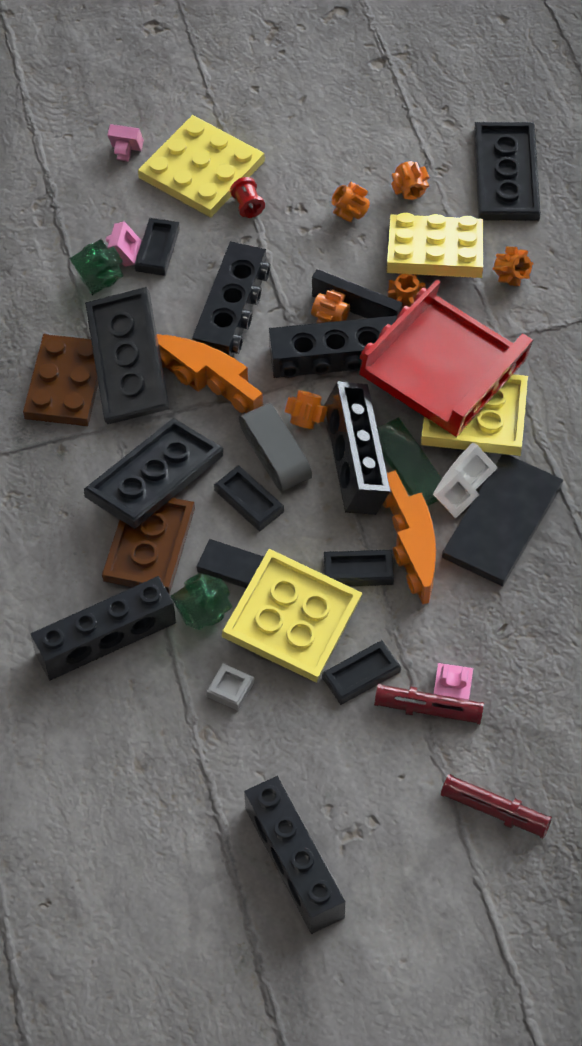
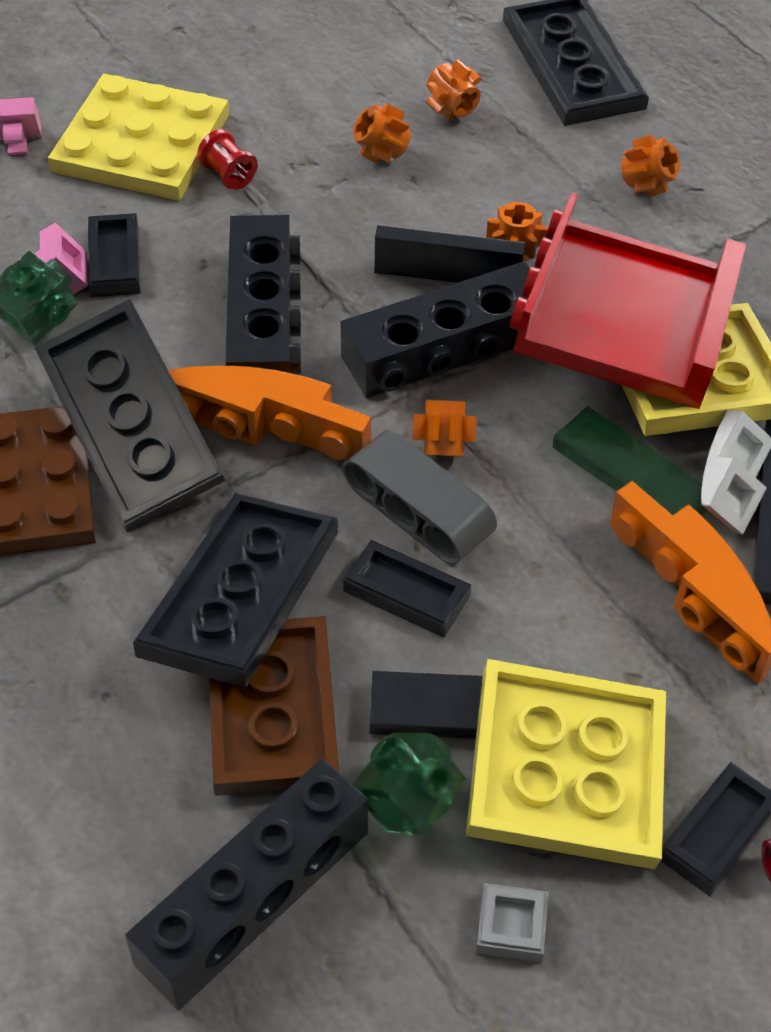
camera: 20 degrees left, 5 degrees down
(330, 307) = (416, 274): orange gear -> none
(356, 448) = (555, 466): black brick -> none
(360, 567) = (635, 650): black tile -> none
(435, 245) = (531, 161): light yellow plate -> none

